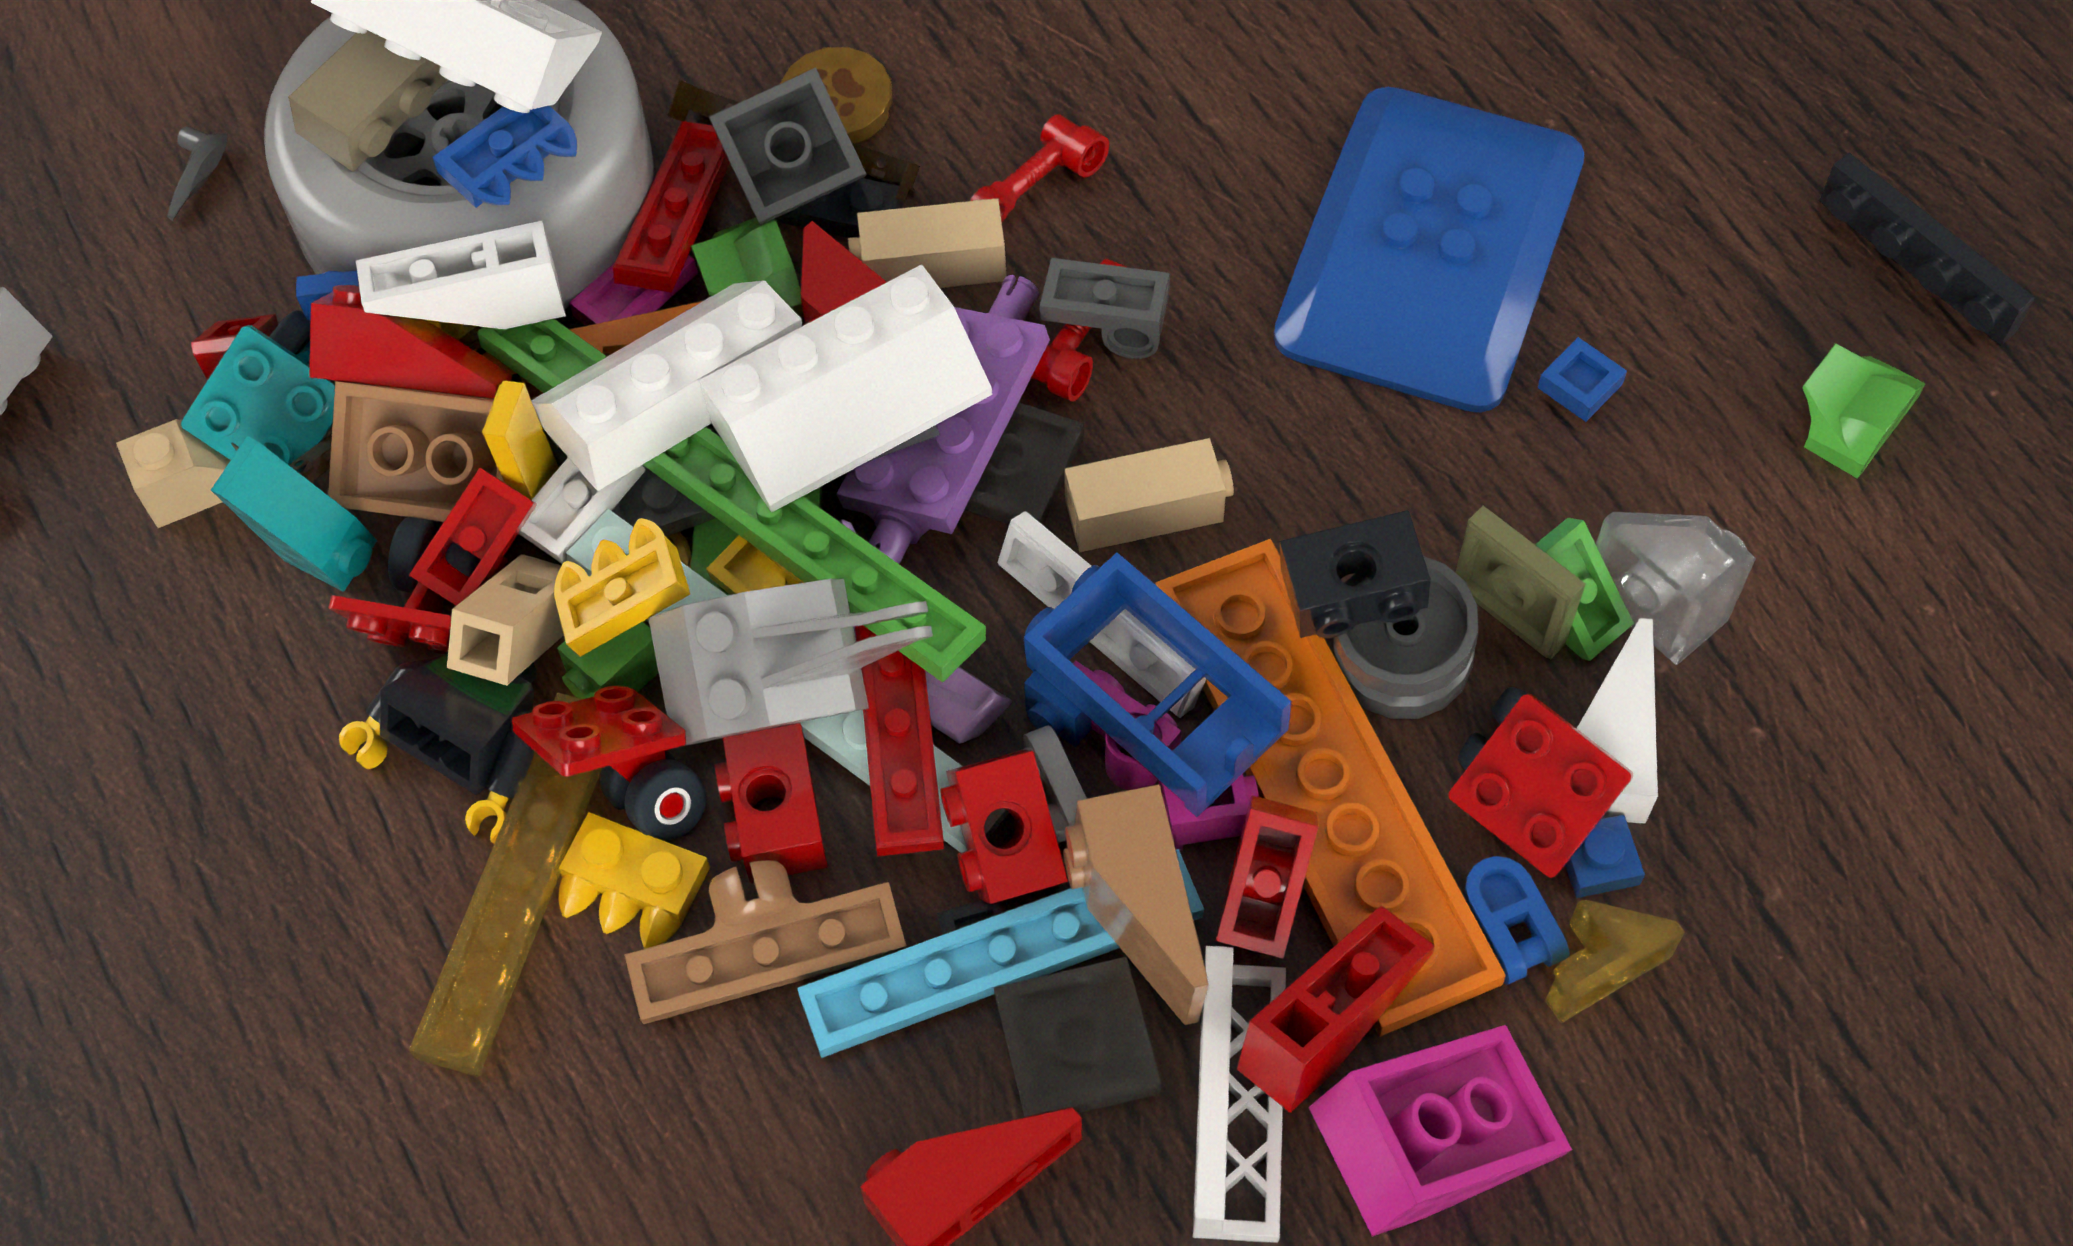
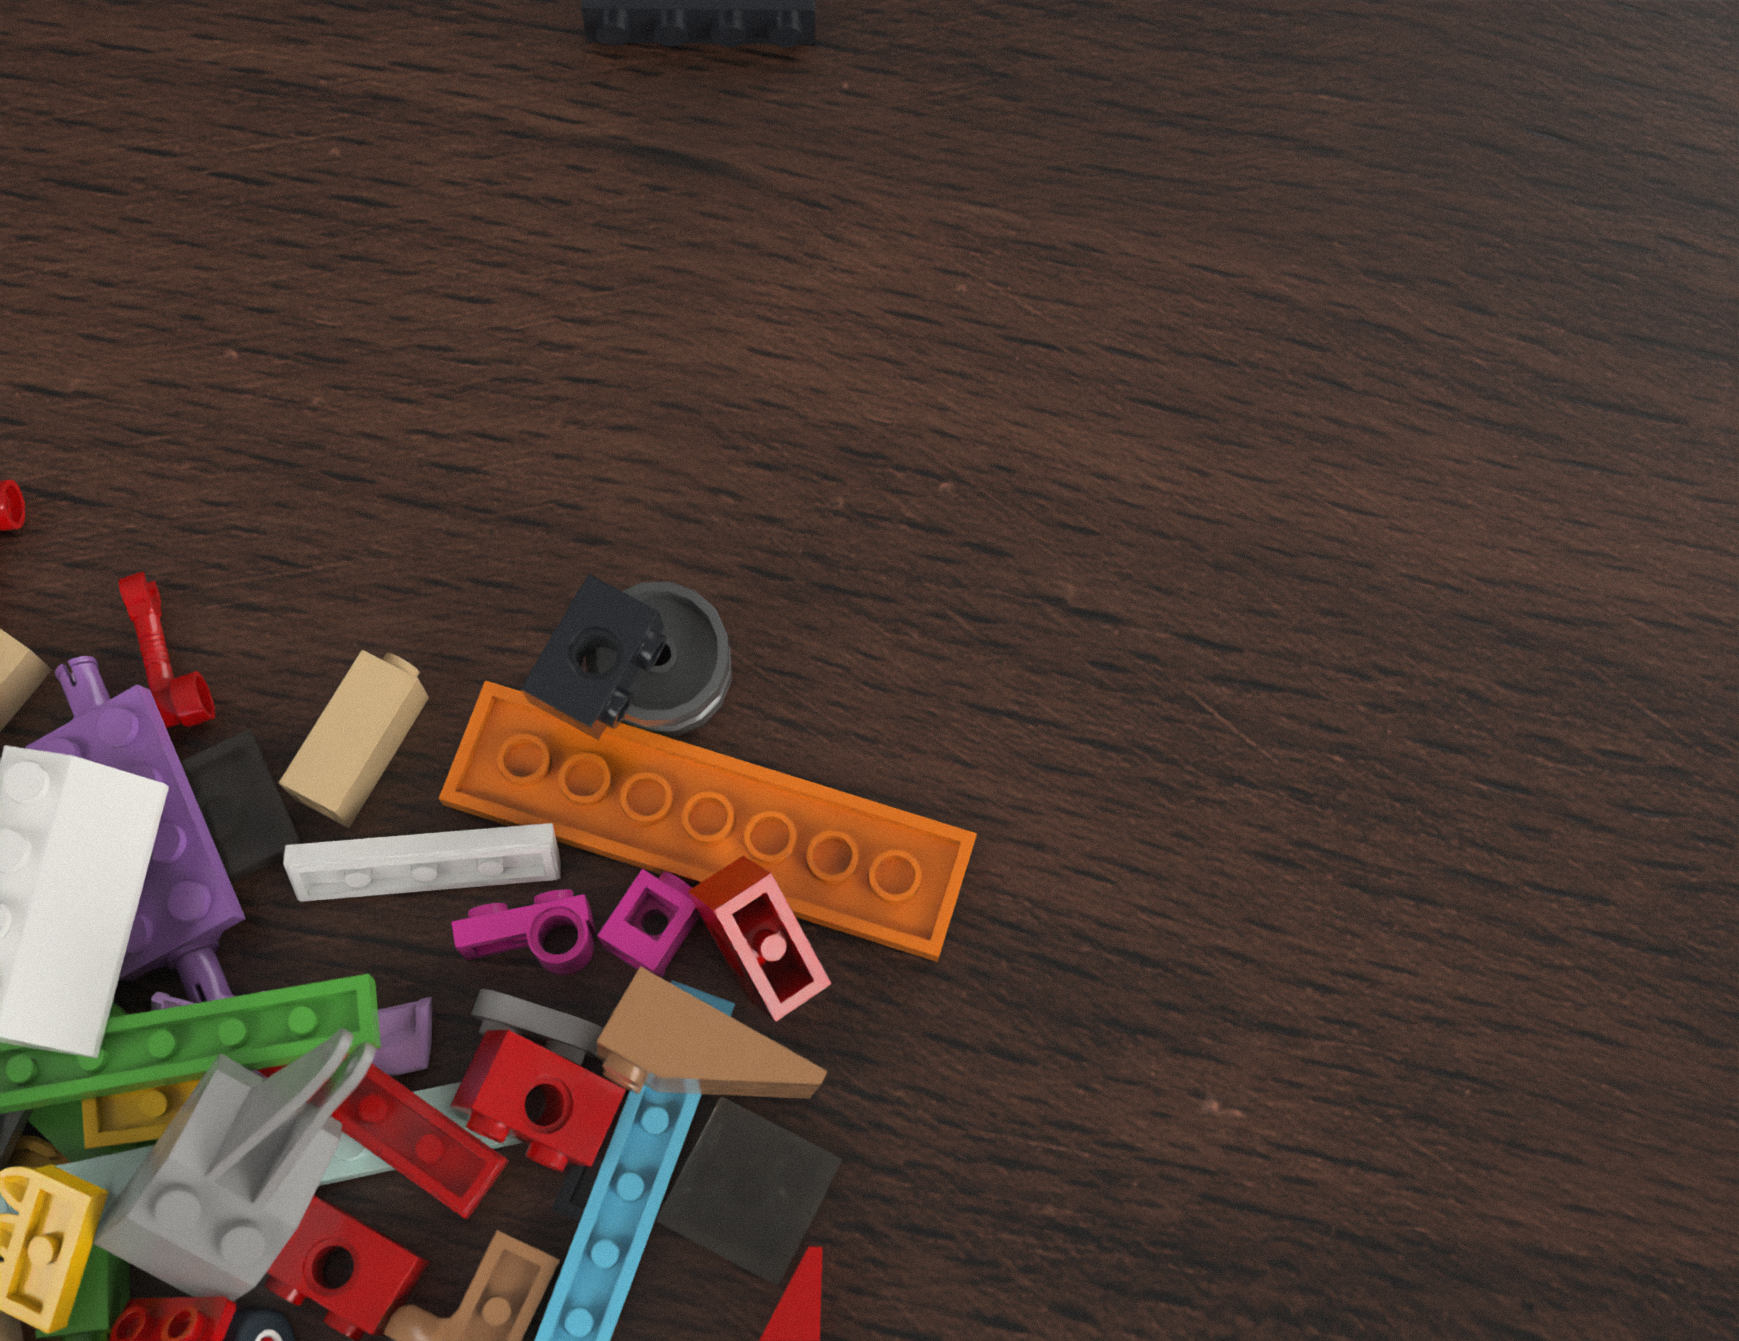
camera: 55 degrees left, 10 degrees up
(1050, 707) = (469, 967): blue plate -> none
(1117, 299) = (165, 608): dark grey plate -> none
(1213, 1109) = (881, 1125): white fence -> none
(1222, 744) = (625, 871): blue door -> none
(1331, 1008) = (898, 980): red slope -> none
(1430, 249) = (351, 335): blue wedge -> none
(1437, 1127) = (1044, 987): dark pink slope -> none
(1504, 896) = (912, 778): blue plate -> none
(1519, 583) = (696, 542): olive tile -> none
(1537, 781) = (852, 673): red plate -> none
(1582, 379) = (571, 338): blue plate -> none
(1601, 610) = (734, 506): bright green slope -> none
(1605, 860) = (941, 681): blue plate -> none
(1617, 951) = (1023, 734): clear yellow slope -> none
(1625, 722) = (877, 597): white slope -> none
(1675, 572) = (790, 435): clear slope -> none
(1855, 407) = (775, 182): bright green slope -> none

